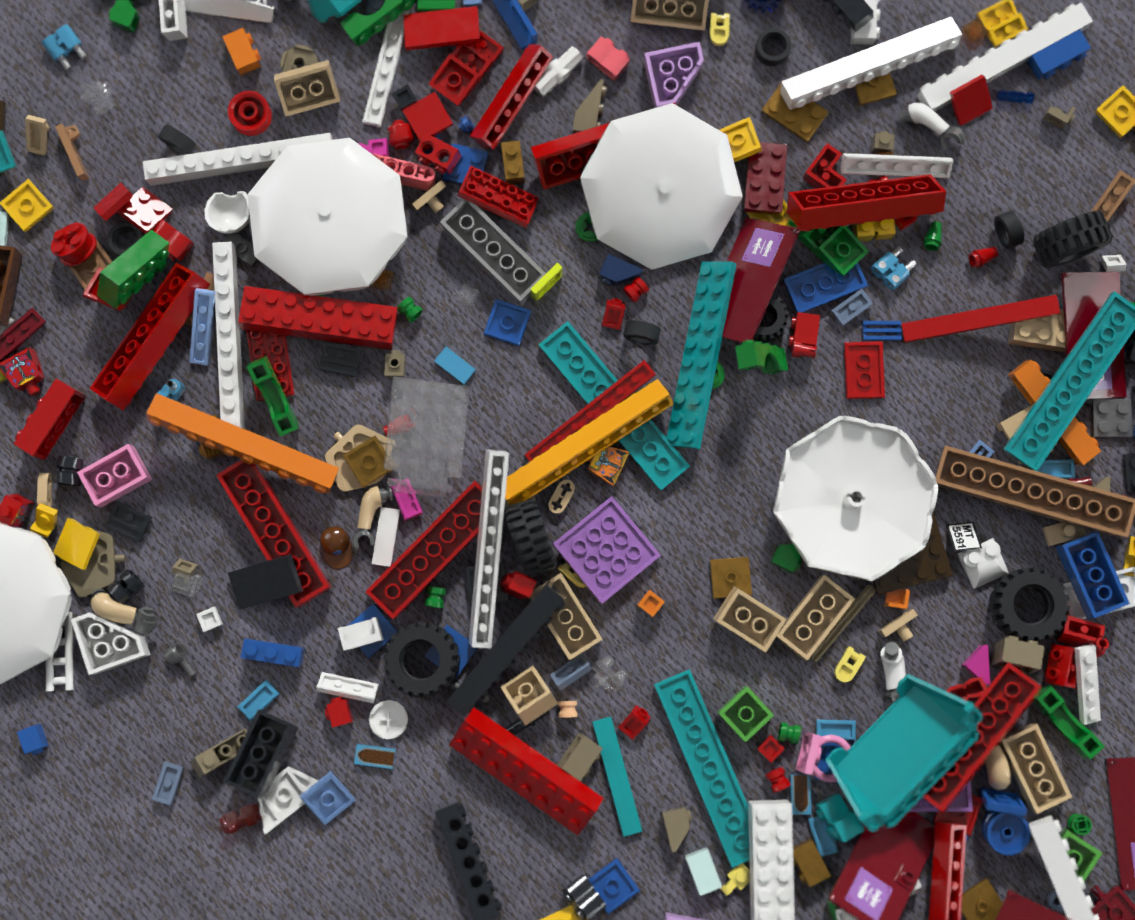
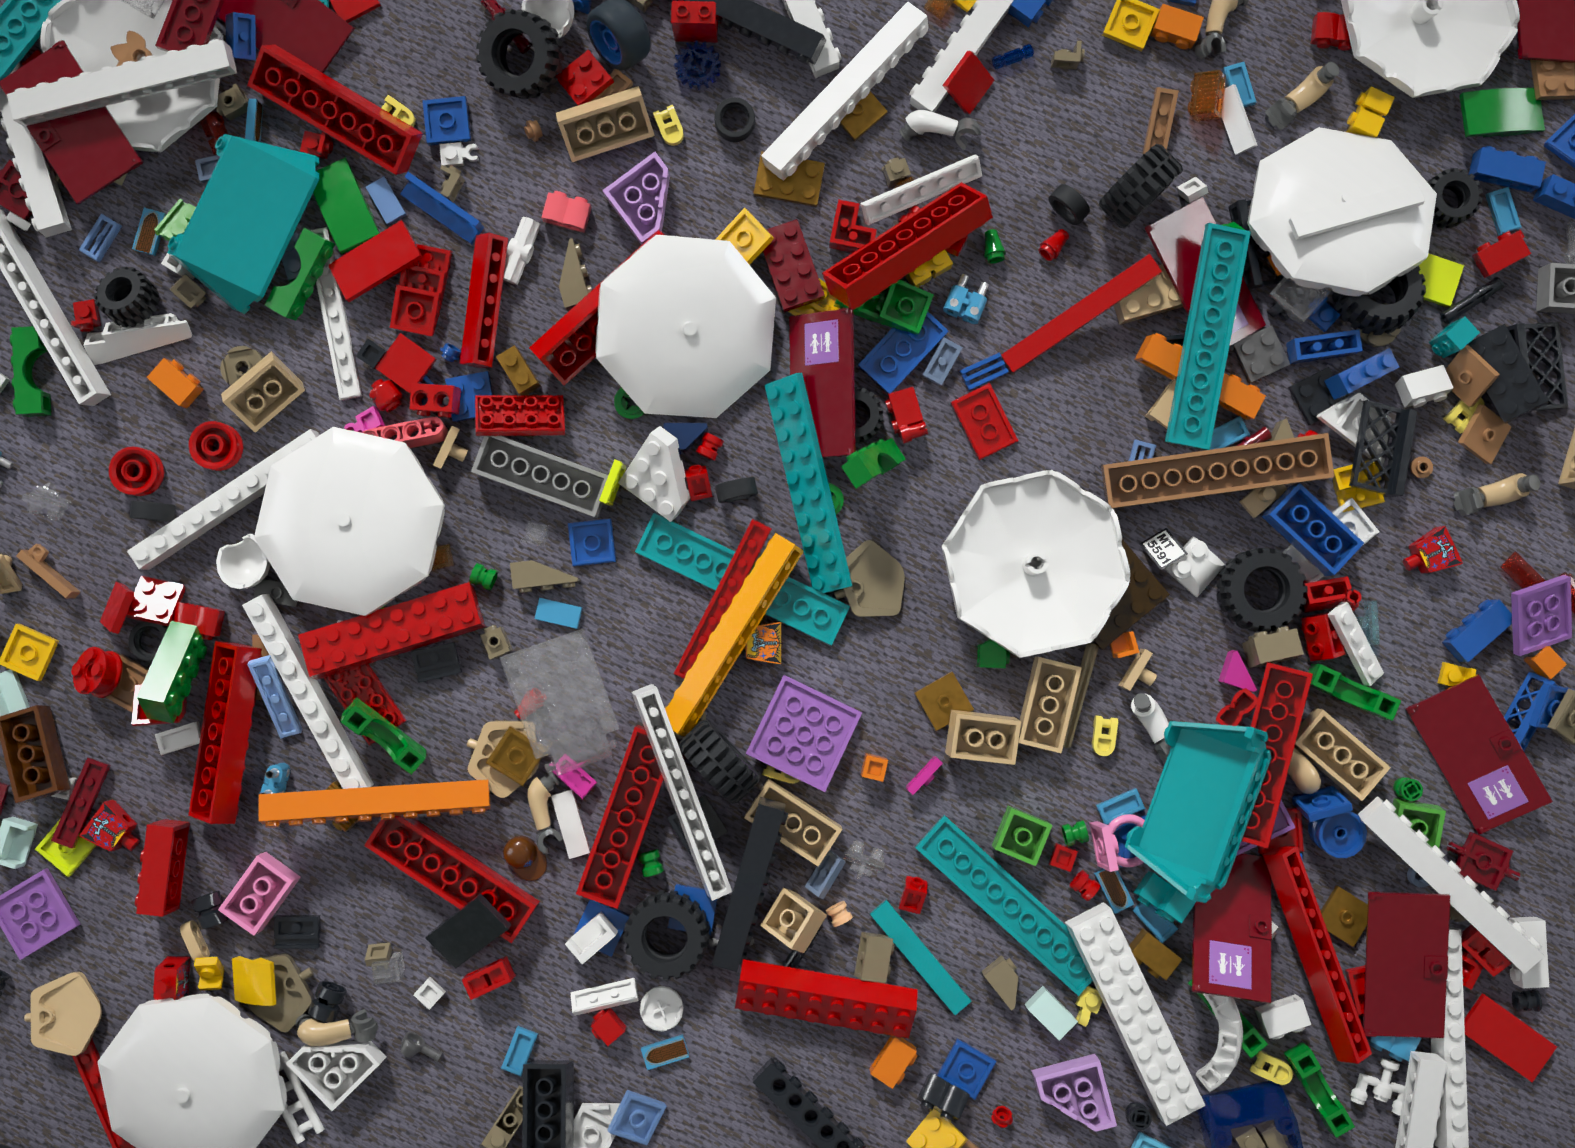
camera: 25 degrees left, 5 degrees up
(110, 326) = (178, 738): none -> white tile
(175, 93) = (150, 474): none -> red wheel
(263, 628) = (488, 977): none -> red brick
(273, 652) = (511, 997): blue brick -> none
(450, 326) = (534, 574): none -> dark tan slope
(517, 585) = (729, 814): red brick -> none
(556, 850) = (893, 1061): none -> orange brick
(565, 499) = (727, 697): tan beam -> none
(585, 292) = (658, 475): none -> white brick
(688, 630) = (925, 775): none -> dark pink plate
(719, 456) = (875, 581): none -> dark tan animal
(1107, 673) = (1370, 622): none -> clear light blue tile

